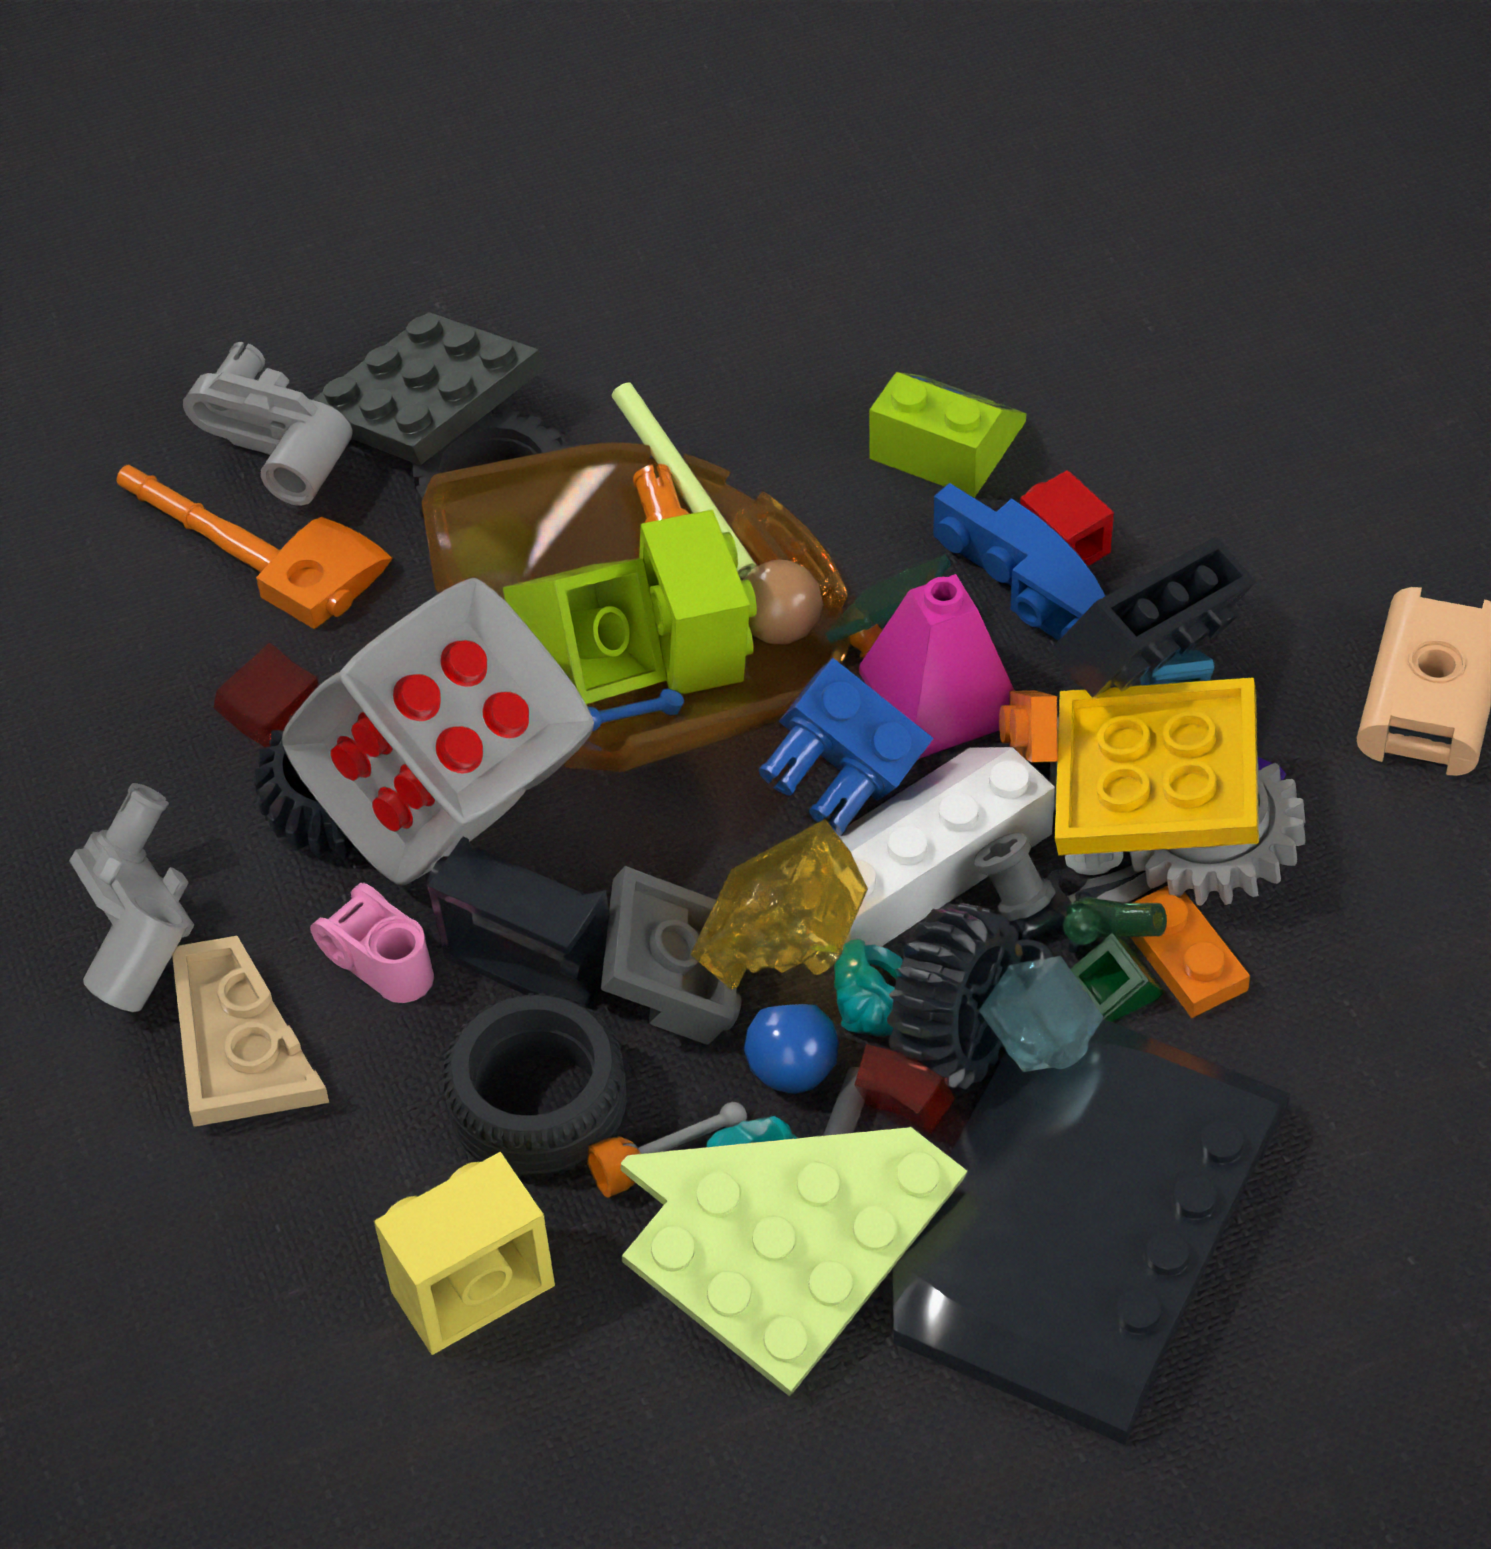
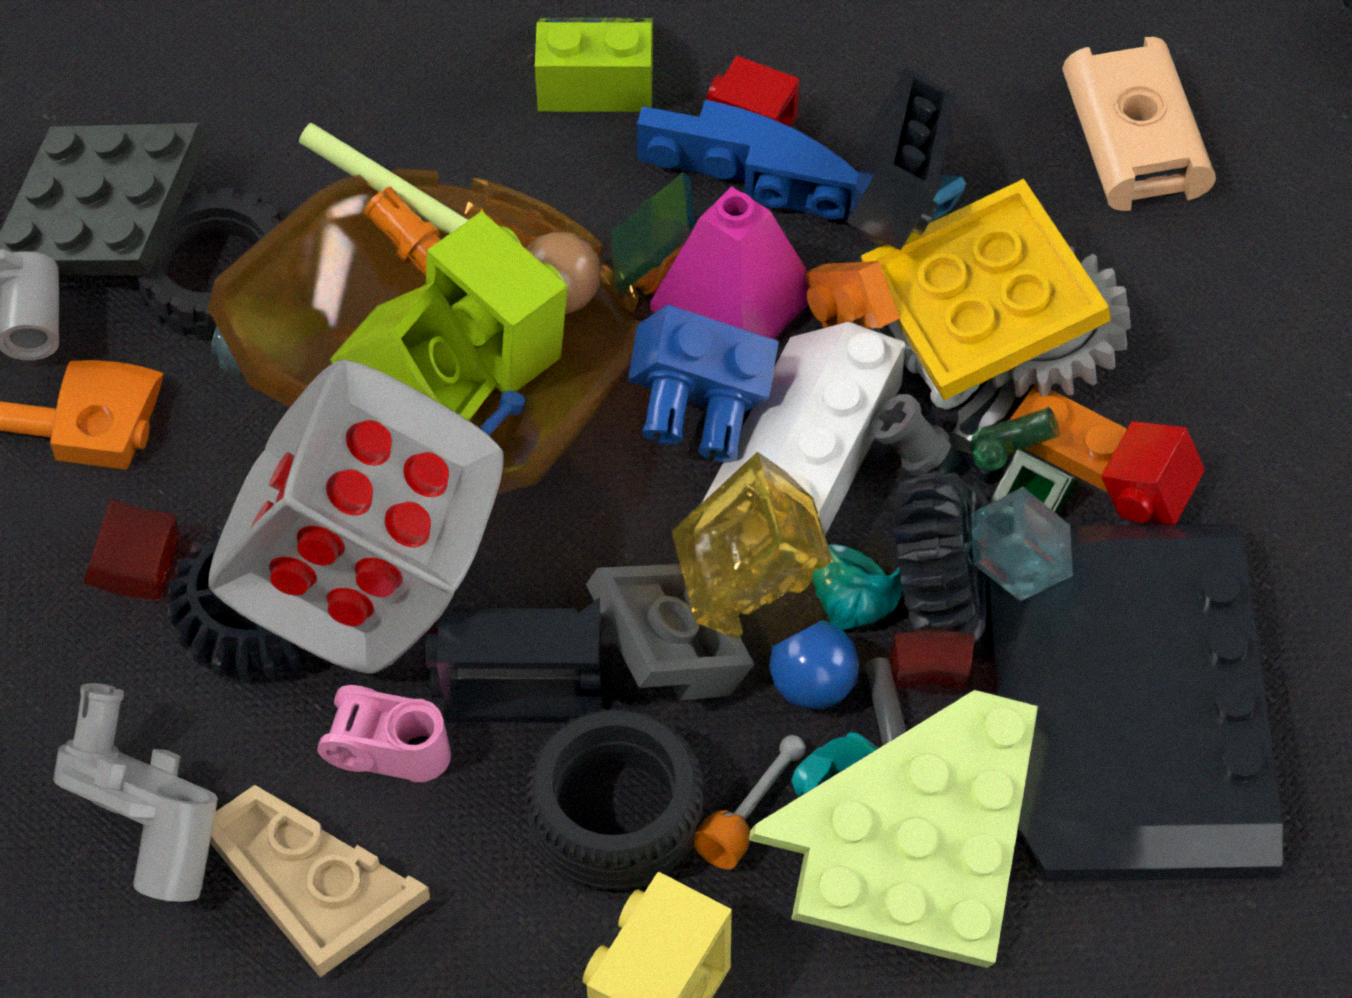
camera: 30 degrees left, 5 degrees up
(1230, 1009) = (1153, 473): none -> red brick

